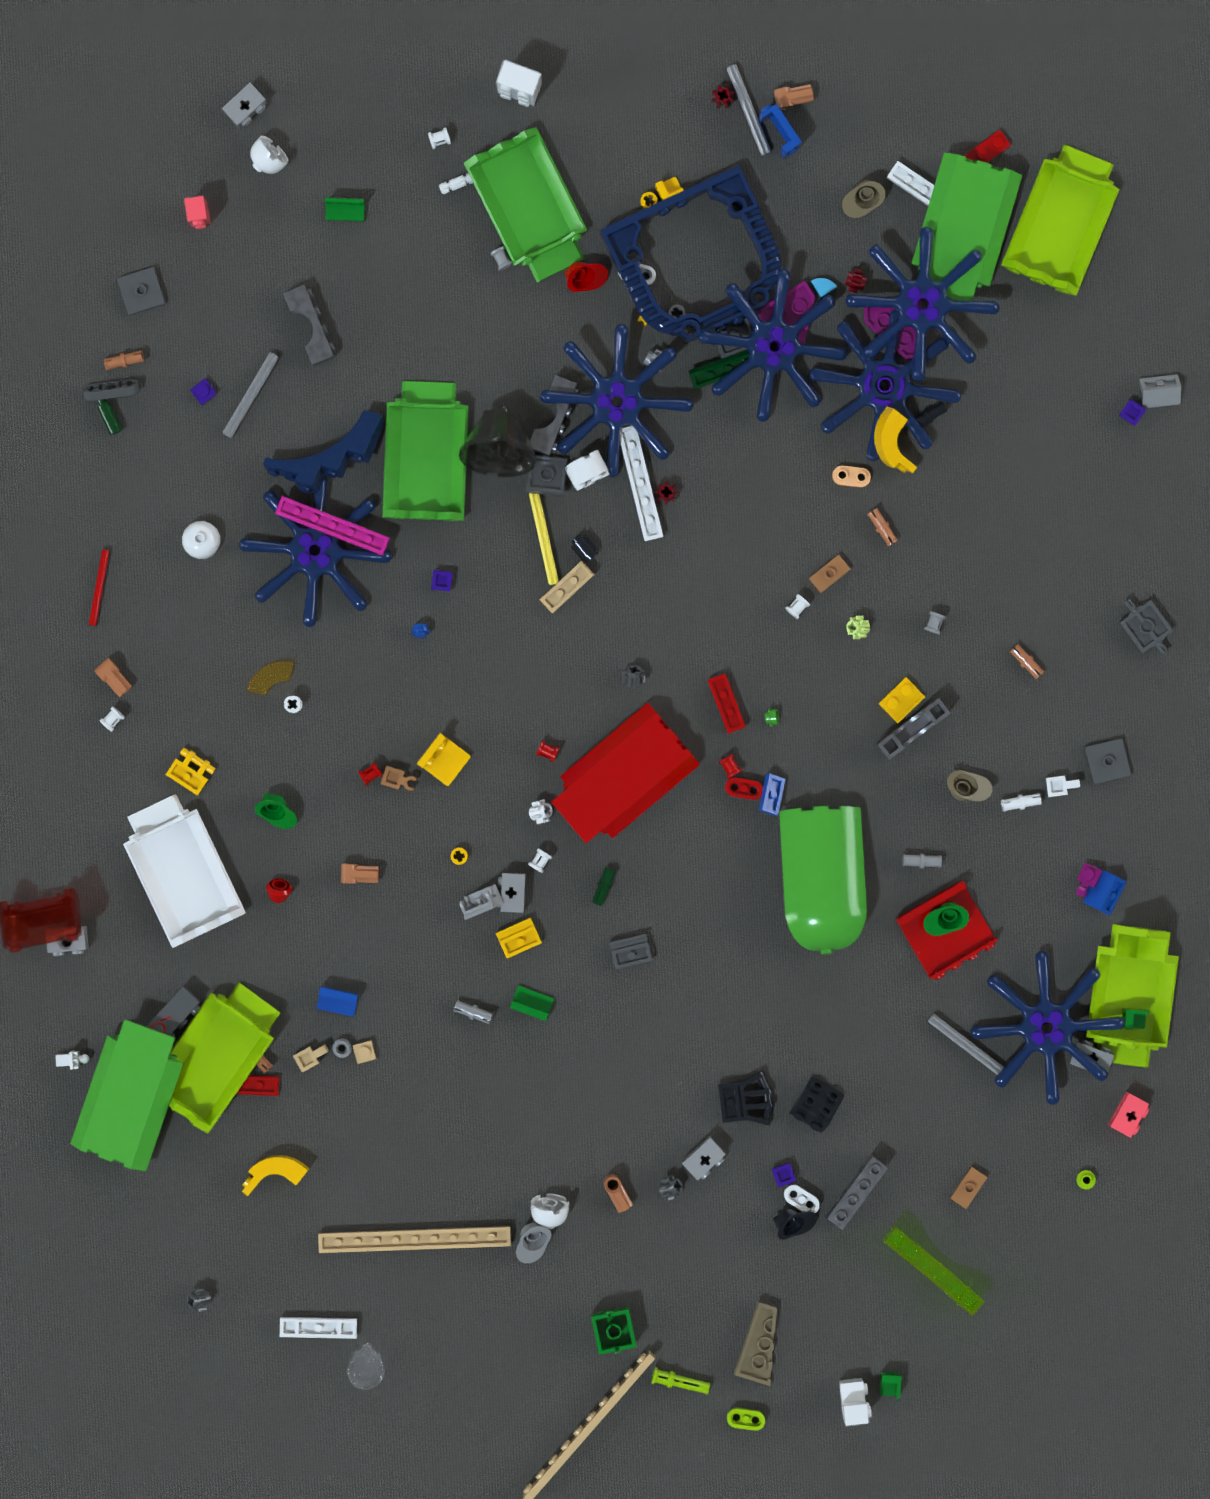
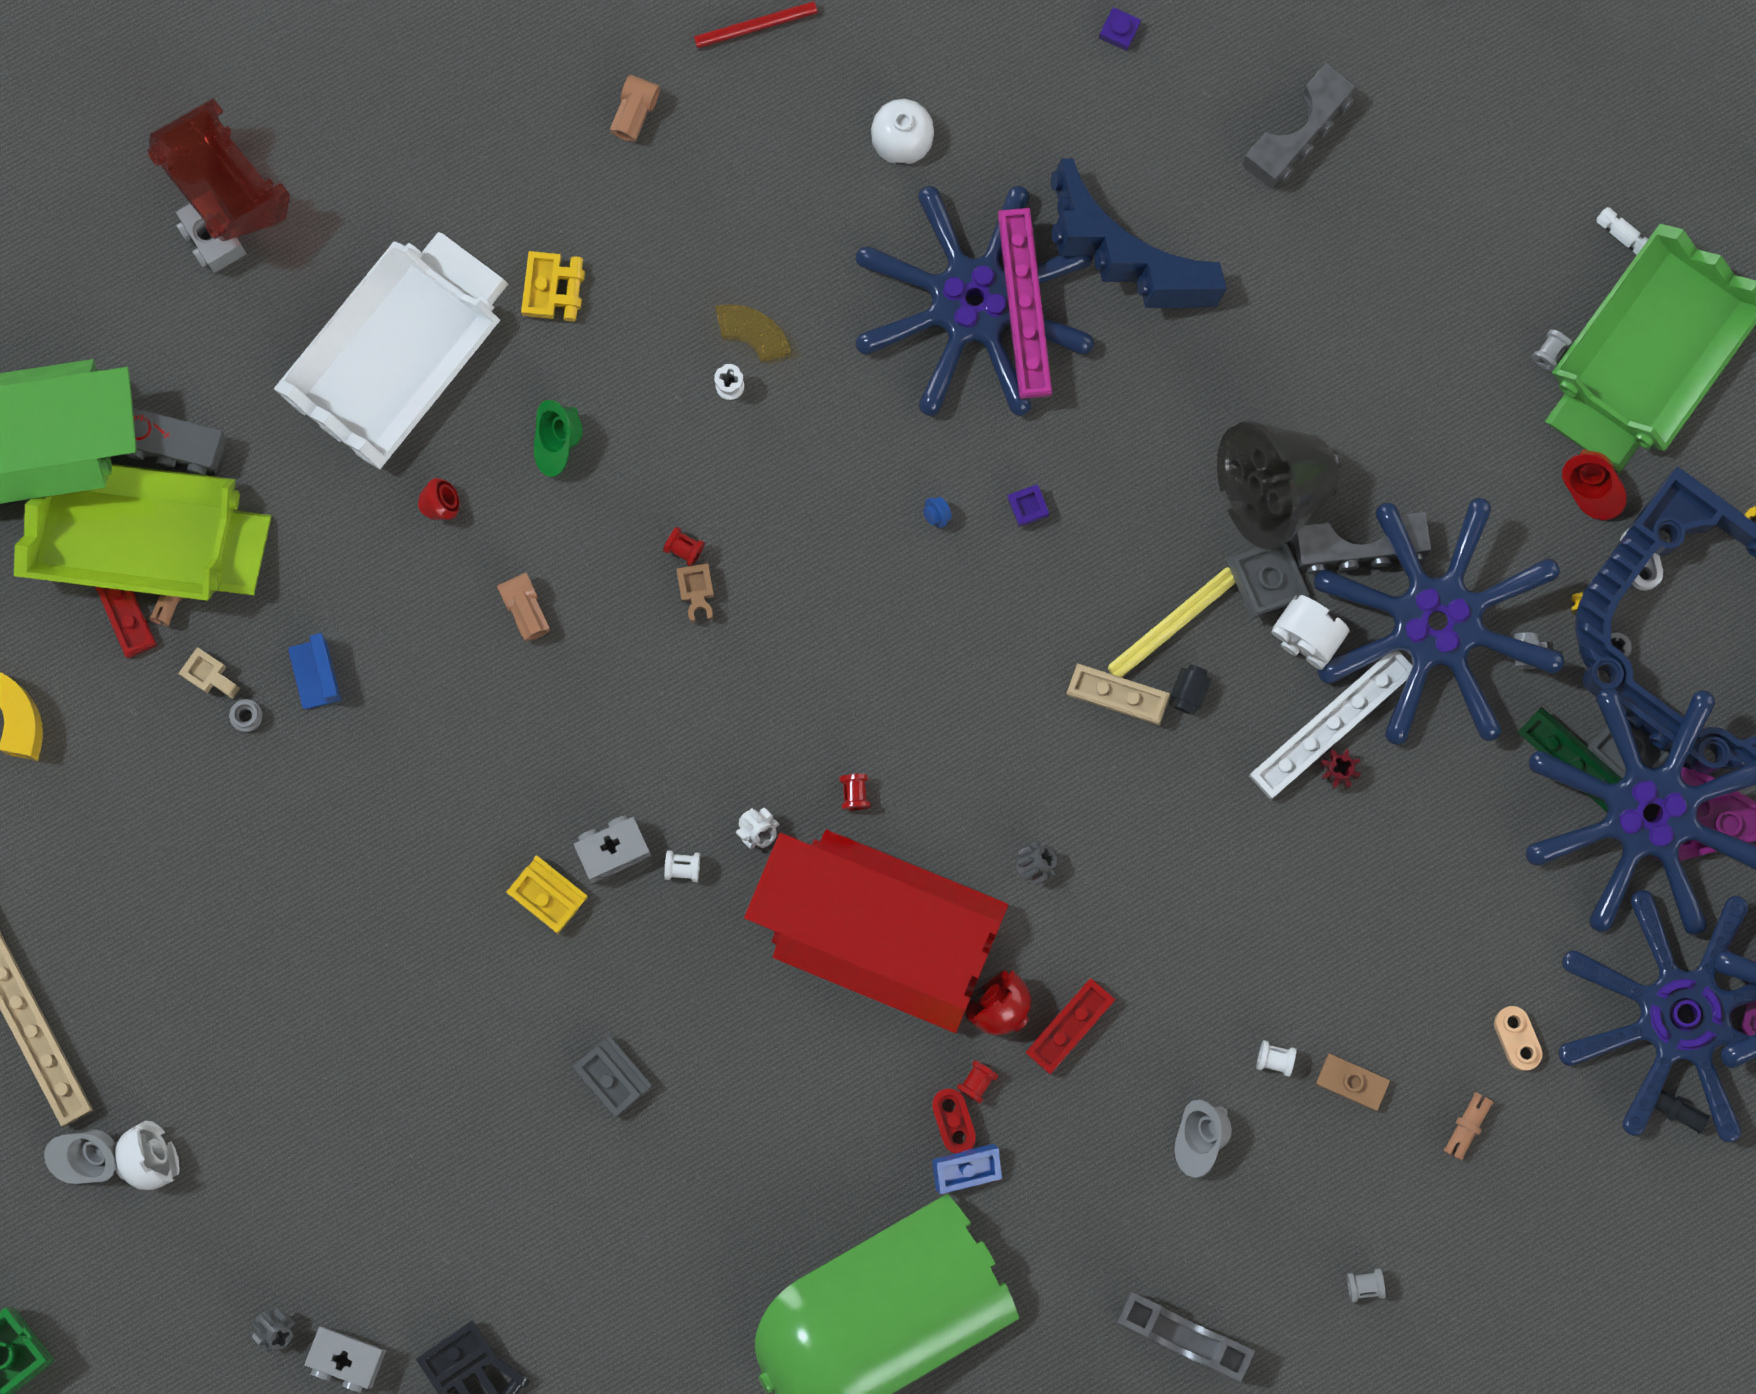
camera: 65 degrees right, 10 degrees down
(72, 1059) = (33, 329): white piece -> none
(112, 718) = (572, 136): white bush -> none
(250, 395) = (1152, 96): light grey axle -> none
(345, 209) = (1496, 92): green panel -> none
(364, 1051) = (256, 752): tan plate -> none
(422, 453) = (1185, 386): bright green panel -> none
(439, 138) = (1675, 173): white bush -> none
(444, 759) = (761, 642): yellow bracket -> none
(461, 851) = (616, 741): yellow bush -> none
(473, 1012) = (398, 884): light grey pin -> none
(481, 901) = (573, 808): light grey hinge -> none
(531, 1003) = (456, 966): green panel -> none
(603, 886) = (692, 984): dark green axle -> none
(617, 1194) = (223, 1252): nougat piece -> none
(698, 733) = (1002, 1006): none -> red cylinder
(772, 717) = (1086, 1108): bright green plate -> none
(817, 666) = (1200, 1137): none -> light grey piece
(858, 627) = (1295, 1168): yellowish green gear -> none
(886, 437) = (1602, 1060): yellow arch -> none
(901, 700) = (1219, 1297): yellow plate -> none

